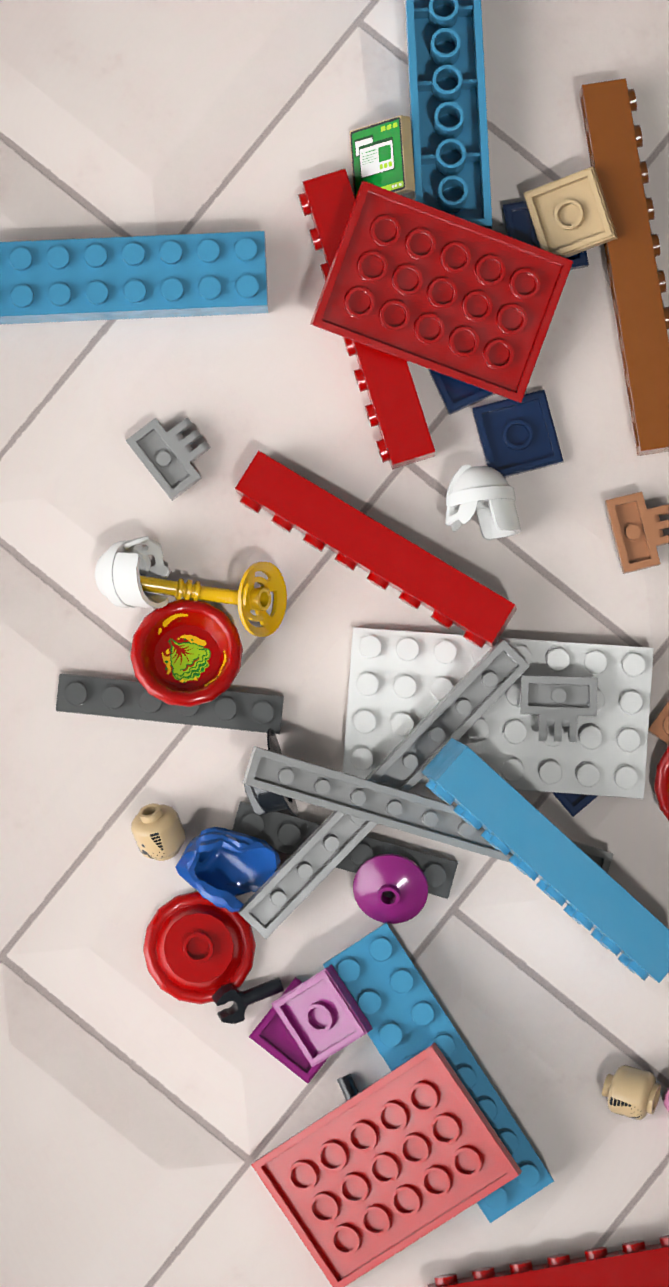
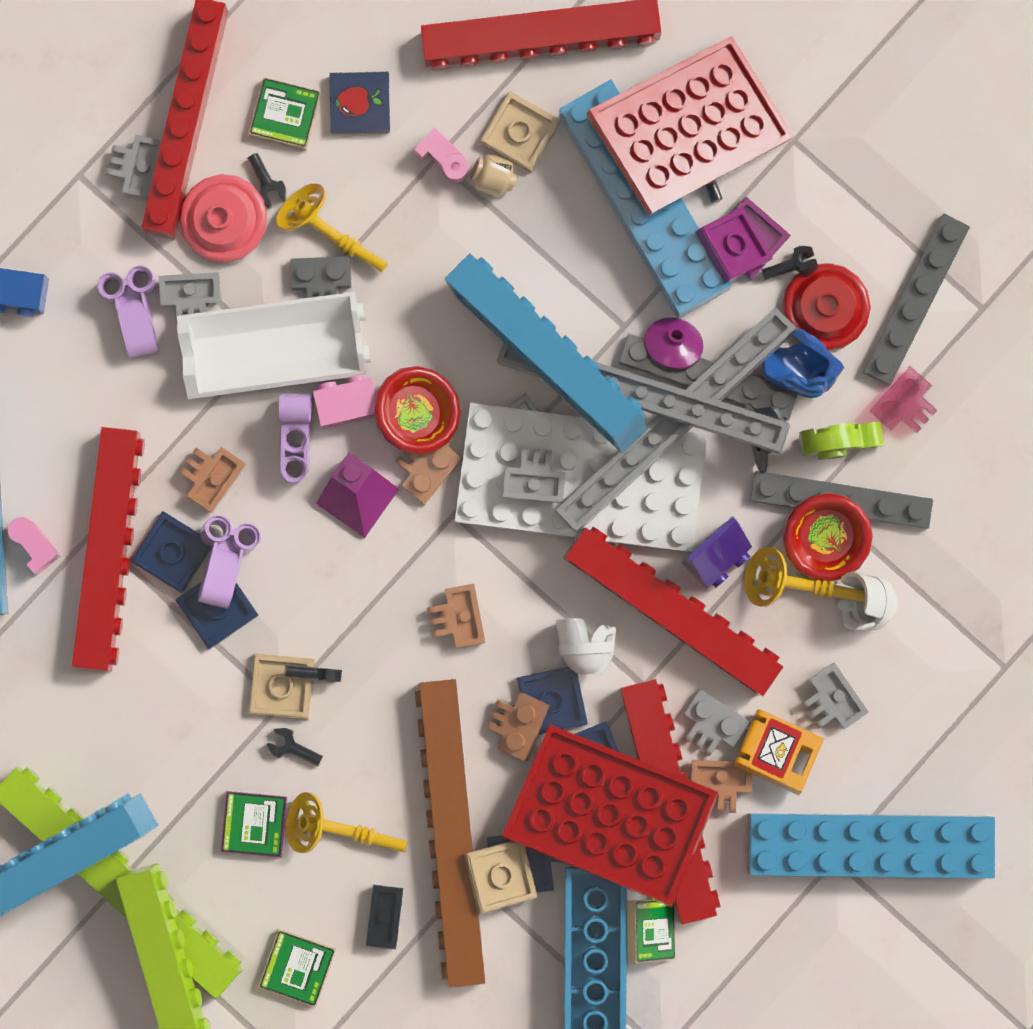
camera: 175 degrees right, 0 degrees up
(85, 963) = (916, 300): none -> dark grey plate
(95, 831) = (904, 401): none -> clear pink hinge
(158, 832) = (856, 397): tan head -> none
(182, 772) = (839, 439): none -> lime piece
(241, 386) = (773, 751): none -> container
(303, 349) = (722, 777): none -> nougat hinge
(316, 419) = (713, 722): none -> light grey hinge
(323, 623) = (718, 554): none -> dark purple slope
(558, 402) = (519, 724): none -> nougat hinge
(600, 1153) = (520, 131): none -> tan tile

